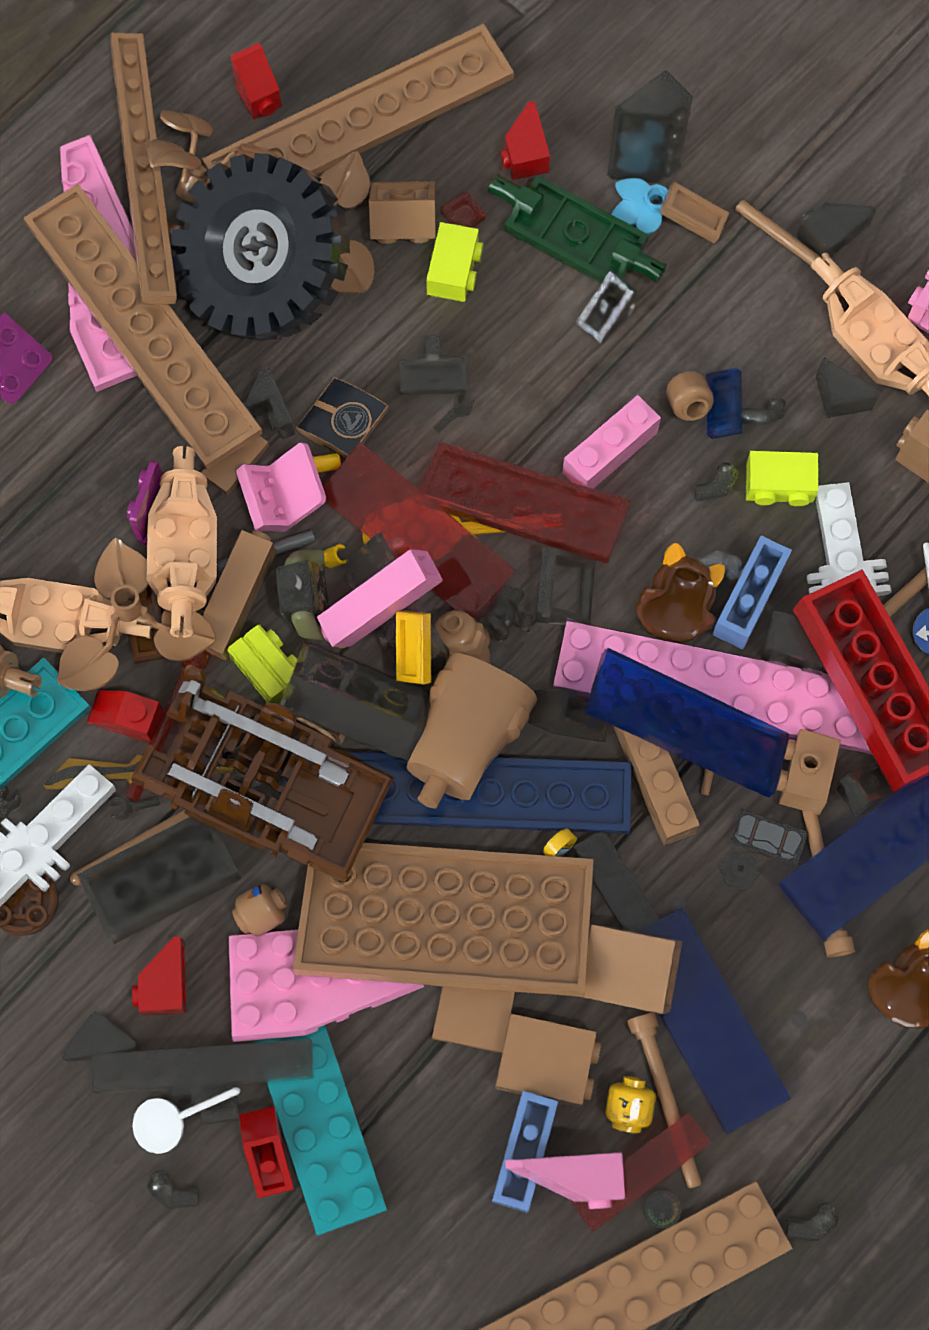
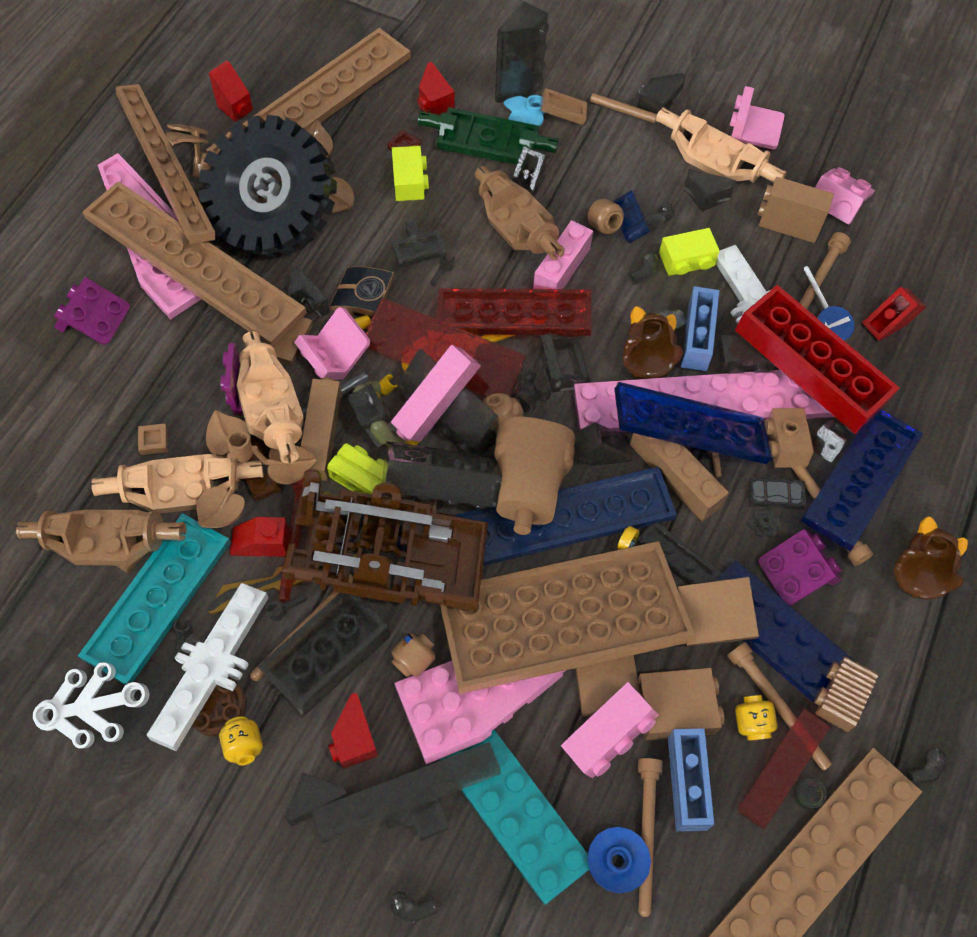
camera: 20 degrees left, 10 degrees down
(34, 550) = (153, 439): none -> medium nougat plate
(38, 951) = (240, 740): none -> yellow head
(160, 1124) = (385, 853): white piece -> none
(265, 1152) = (481, 847): red slope -> none
(393, 1210) = (630, 848): none -> blue dish
(402, 211) = (362, 151): medium nougat slope -> none
(413, 647) = (471, 423): yellow tile -> none
(452, 1069) = (610, 731): none -> bright pink brick
(485, 1128) = (650, 771): none -> medium nougat piece
(574, 364) = (518, 214): none -> medium nougat plate
(577, 1177) = (742, 784): bright pink slope -> none
(742, 1111) = (845, 694): none -> medium nougat brick
(758, 940) = (799, 567): none -> magenta bracket

